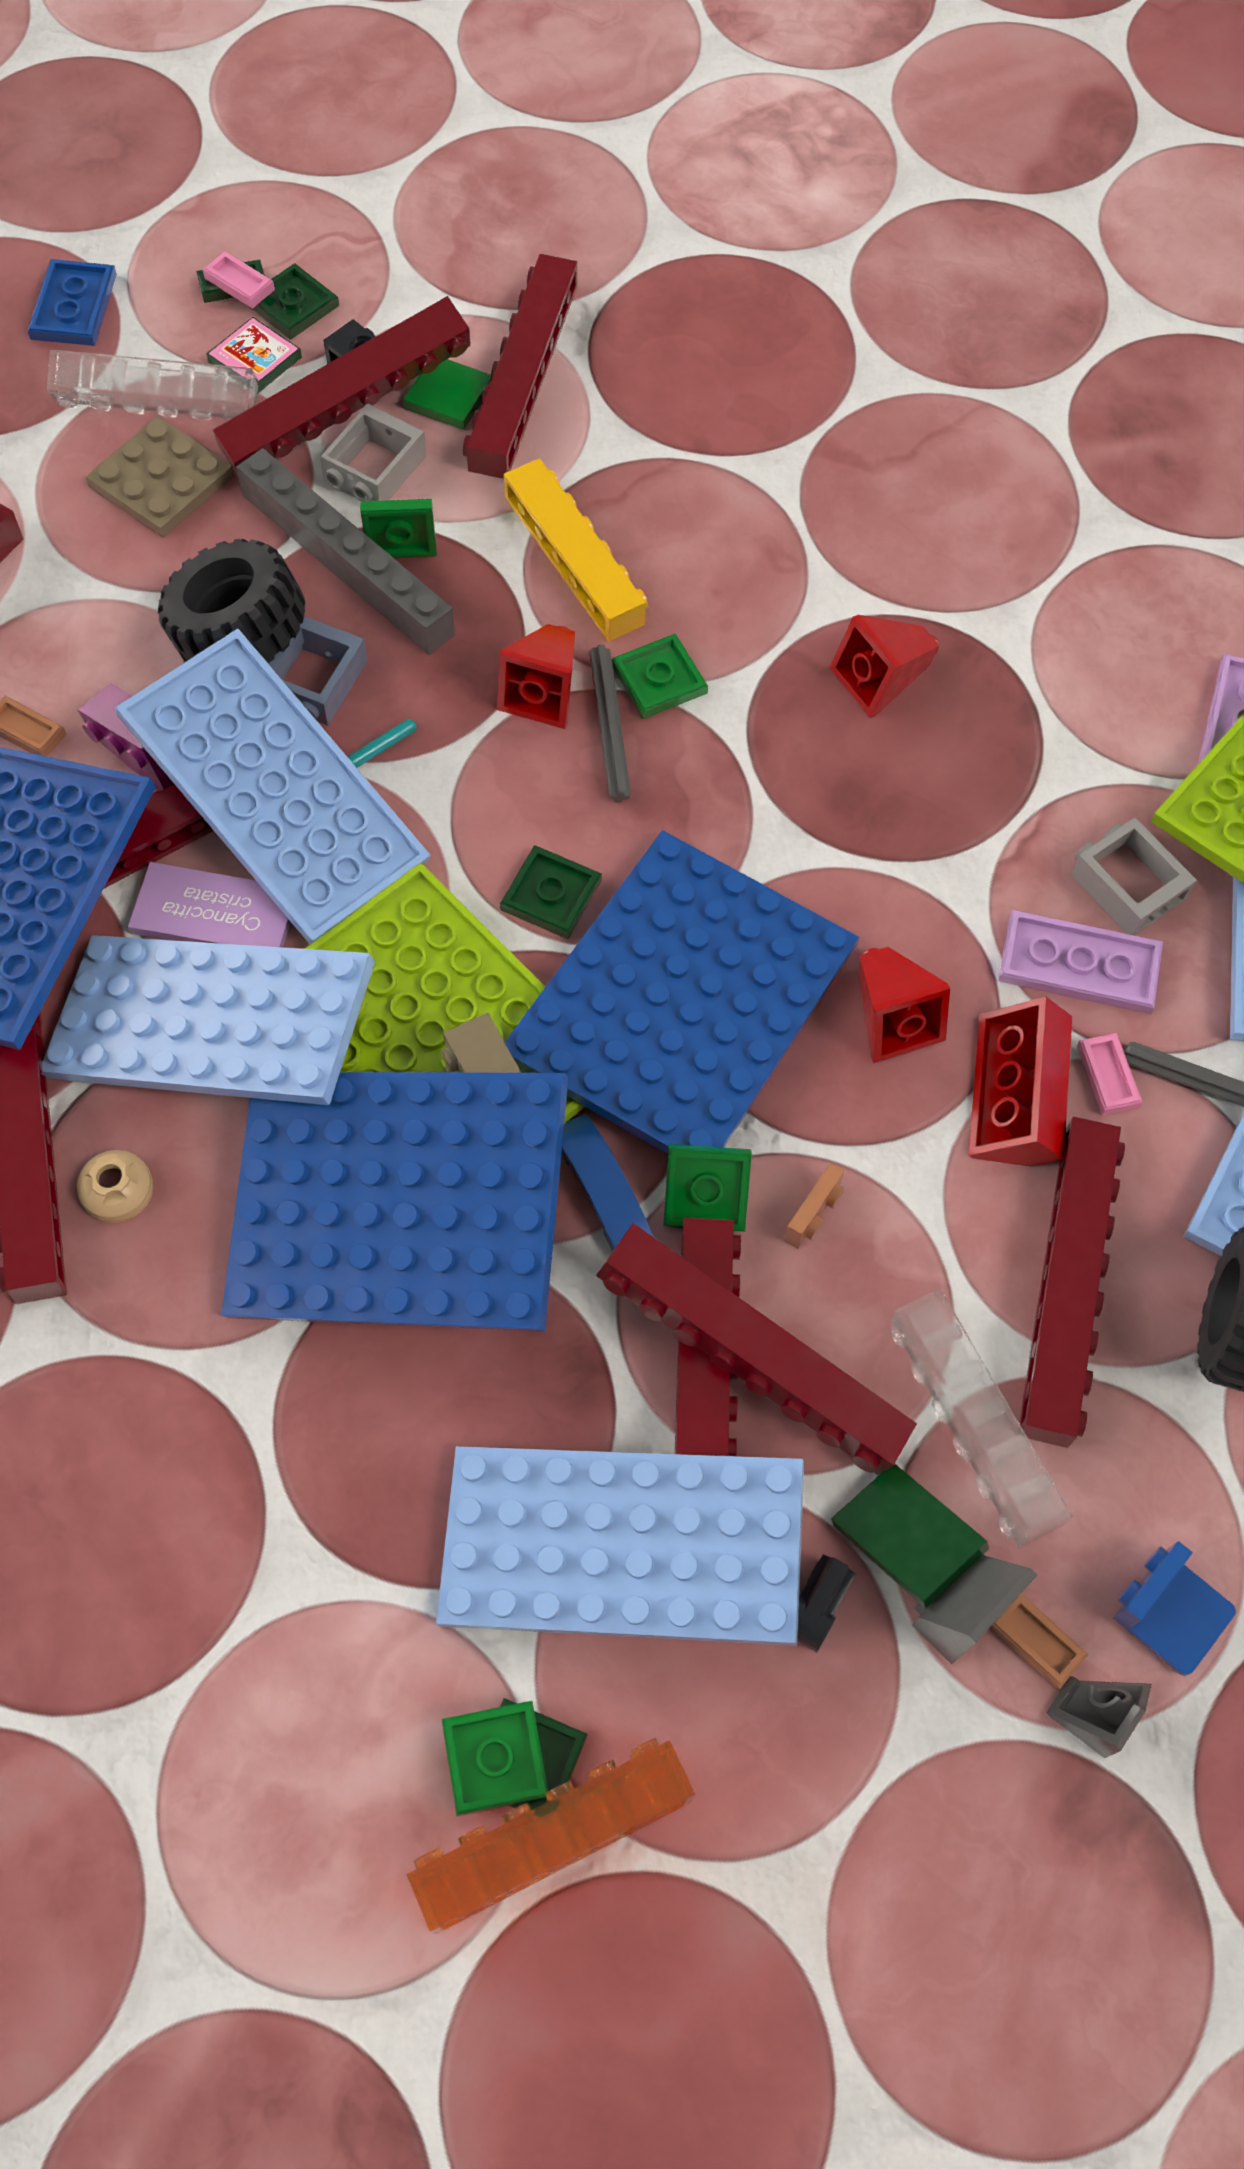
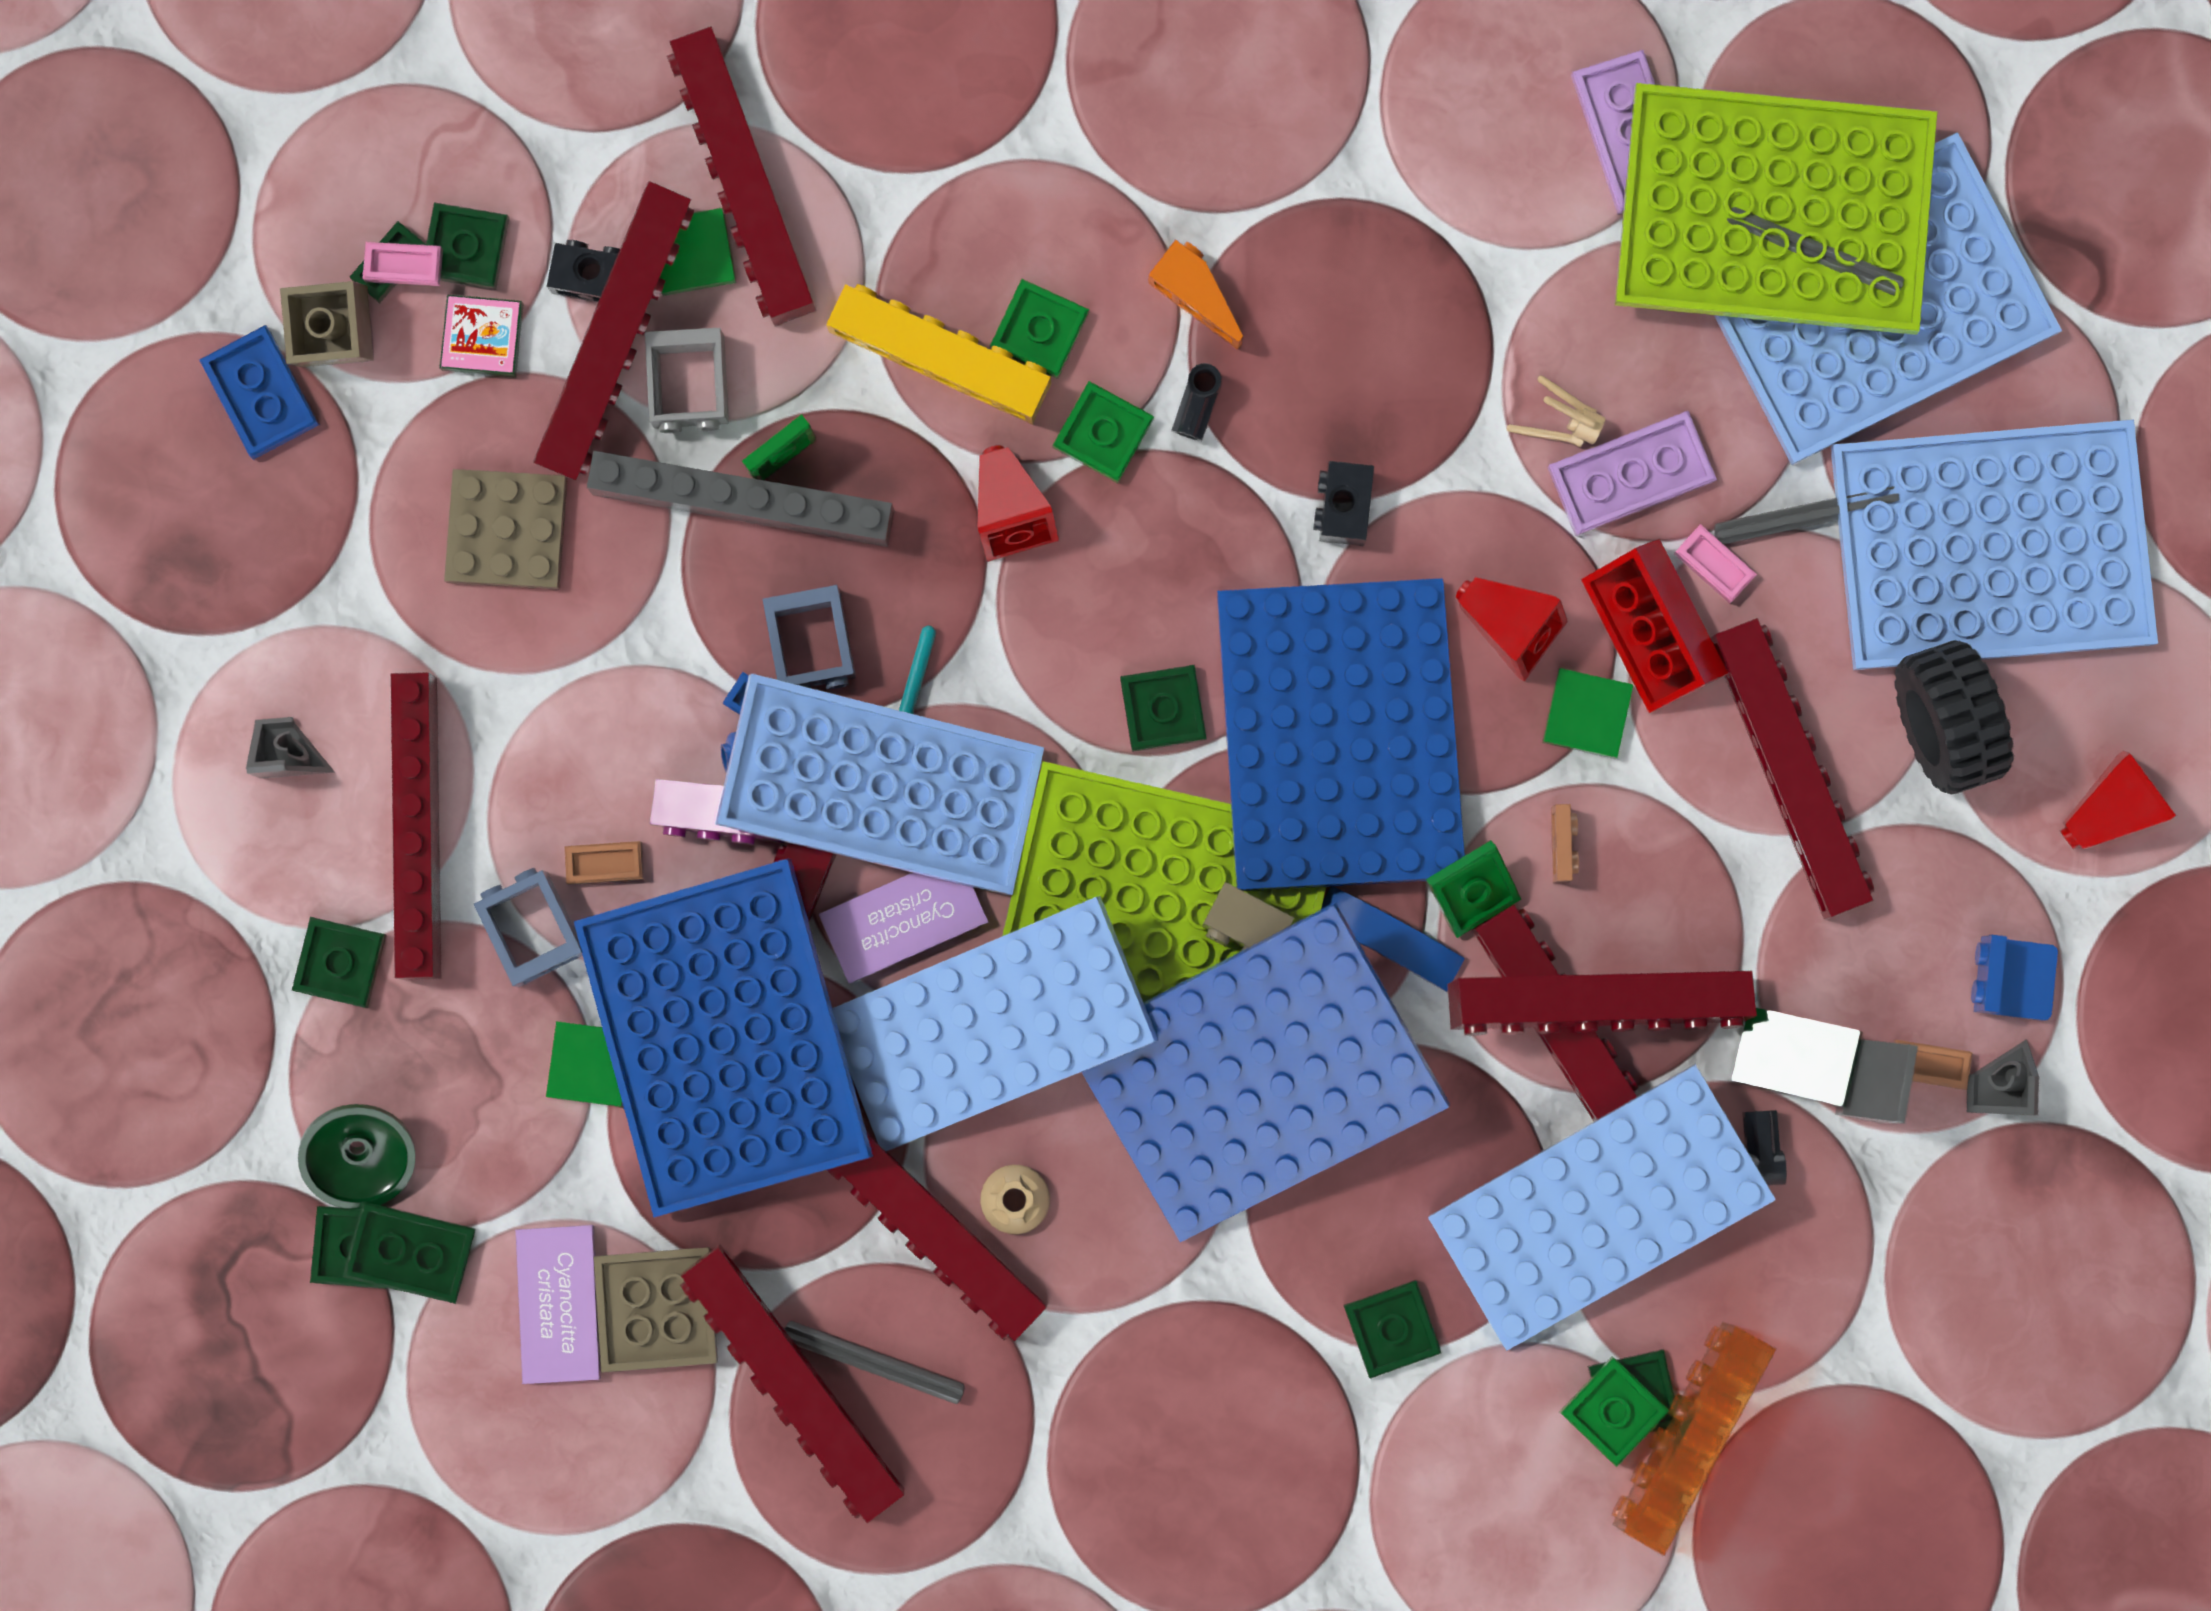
camera: 30 degrees left, 20 degrees up
(150, 385) = (426, 444): clear brick -> none
(152, 279) = (326, 324): none -> dark tan brick
(228, 590) = (663, 630): black tyre -> none
(347, 1529) = (1392, 1329): none -> dark green tile
(609, 723) = (1095, 511): dark grey axle -> none
(669, 581) = (1040, 327): none -> green tile
(750, 693) = (1197, 405): none -> black piece
(804, 611) = (1190, 285): none -> orange slope
(809, 850) = (1354, 482): none -> black brick
(881, 659) = (1291, 290): red slope -> none
(912, 1120) = (1587, 713): none -> green tile
(979, 1418) = (1789, 928): clear brick -> none
(1063, 895) = (1583, 422): none -> tan plant
(1112, 897) = (1582, 368): light grey window -> none

